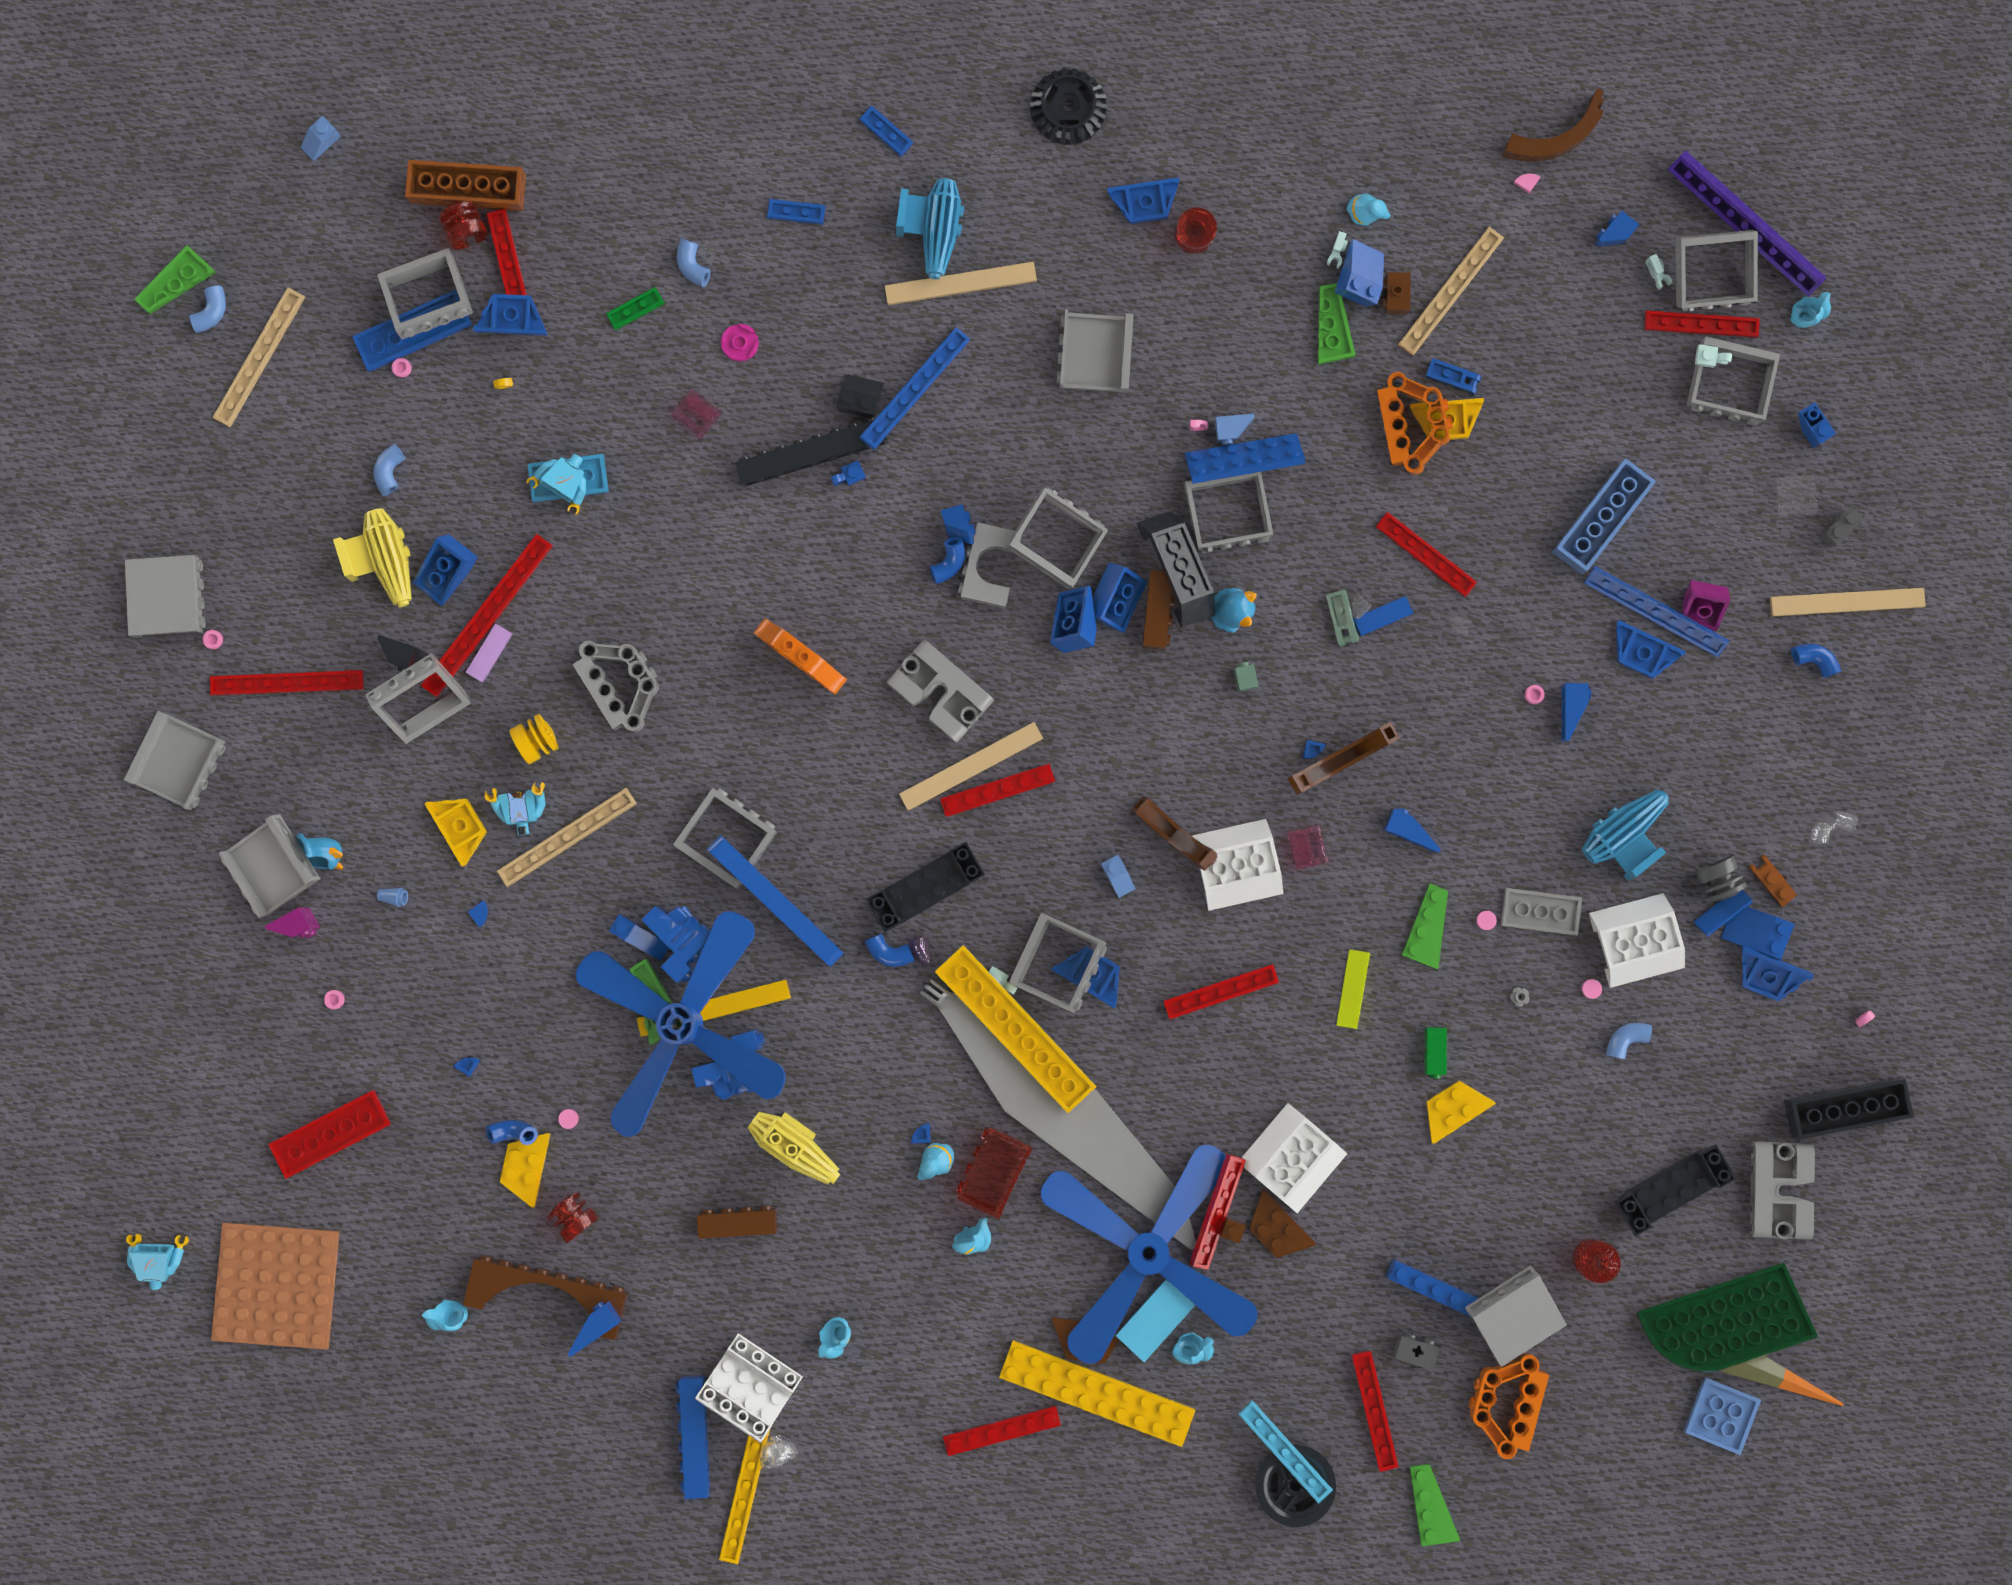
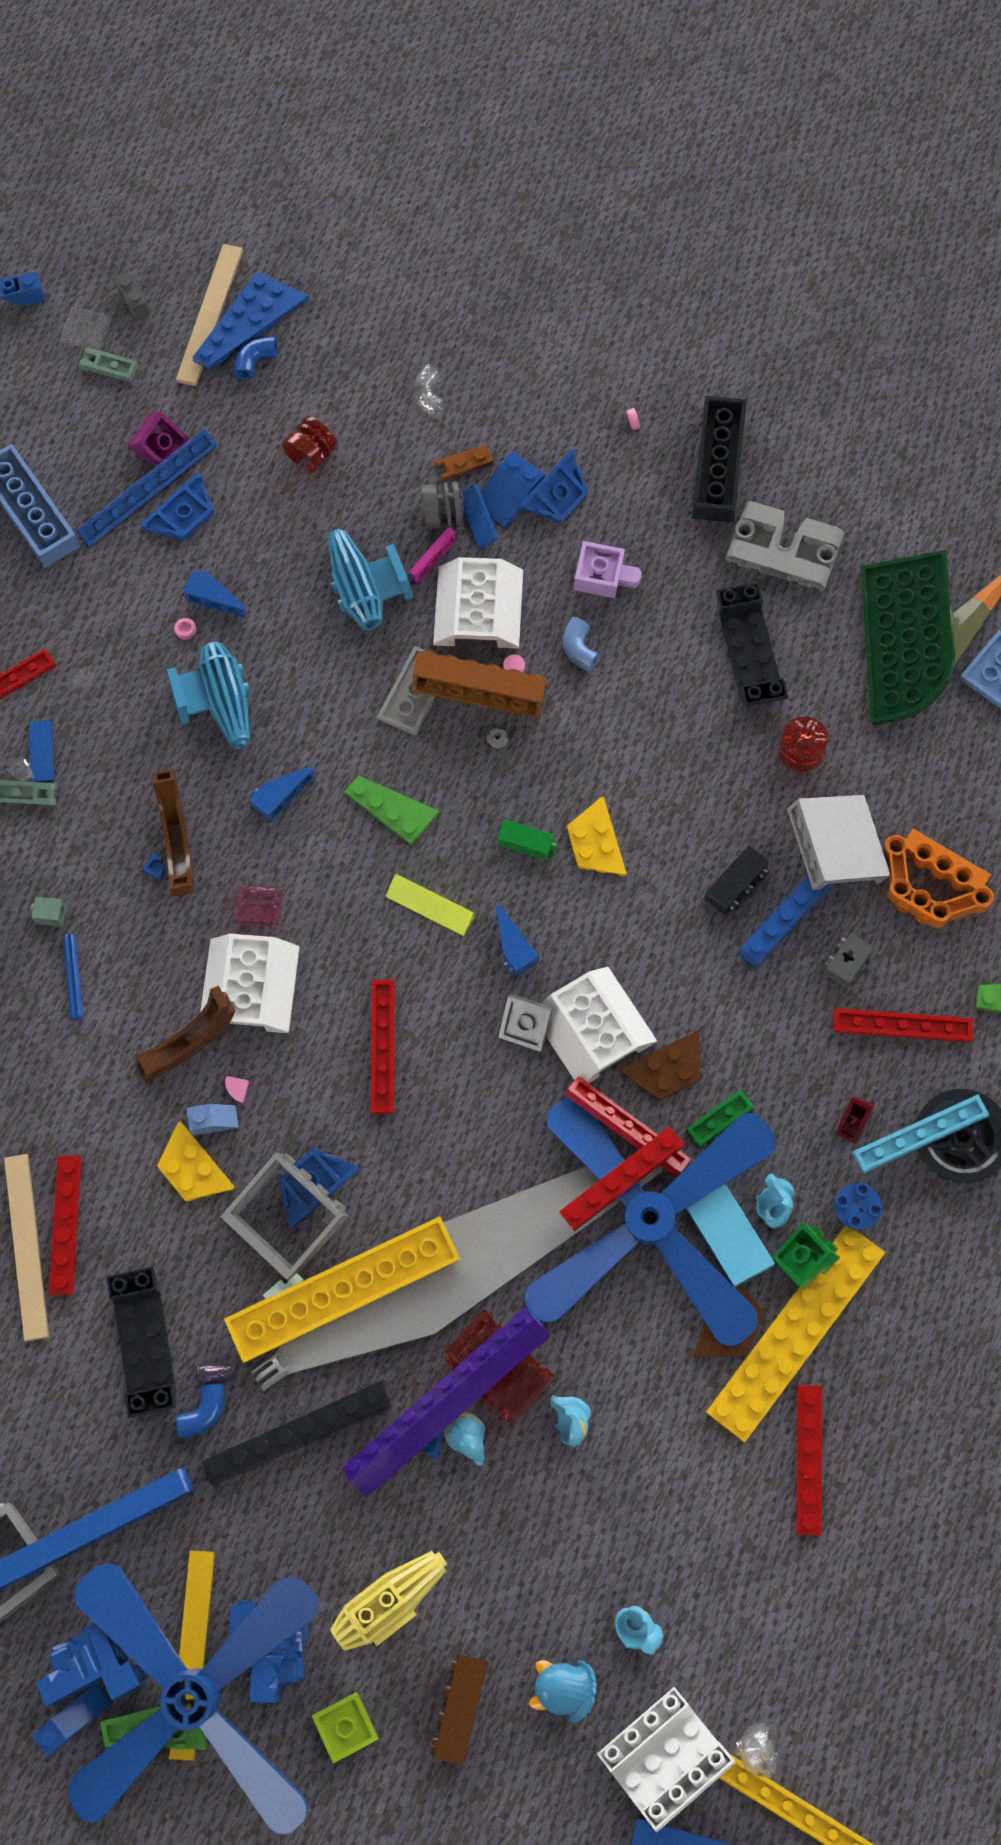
camera: 70 degrees left, 15 degrees down
(698, 1140) = (345, 1727): none -> lime plate
(775, 1296) = (565, 1689): none -> dark azure hair
(896, 1031) = (296, 1433): none -> black brick
(954, 1141) = (445, 1402): none -> dark purple brick
(1074, 872) = (191, 1168): none -> yellow wing
(1149, 885) = (237, 1088): none -> bright pink tile
(1158, 1385) = (806, 1255): none -> green plate
(1171, 1222) = (621, 1179): none -> red plate
(1198, 718) = (73, 977): none -> blue axle
(1203, 1409) = (867, 1200): none -> blue plate
(1233, 1230) = (653, 1115): reddish brown brick -> none
(1249, 1283) = (719, 1118): none -> green tile
(1277, 1102) = (525, 1022): none -> flat silver plate
(1282, 1393) = (854, 1119): none -> dark red slope
(1338, 1072) = (517, 952): none -> blue slope
(1456, 1239) = (737, 880): none -> black brick
(1485, 745) = (215, 688): none -> dark azure piece
(1486, 920) = (404, 747): bright pink tile -> none
(1561, 968) = (478, 683): none -> dark orange brick
(1671, 885) = (432, 556): none -> dark pink tile
(1704, 1039) = (607, 562): none -> lavender brick
(1745, 742) = (310, 441): none -> clear red wheel
(1766, 531) = (108, 364): none -> sand green plate
(1858, 640) = (249, 316): none -> blue wing

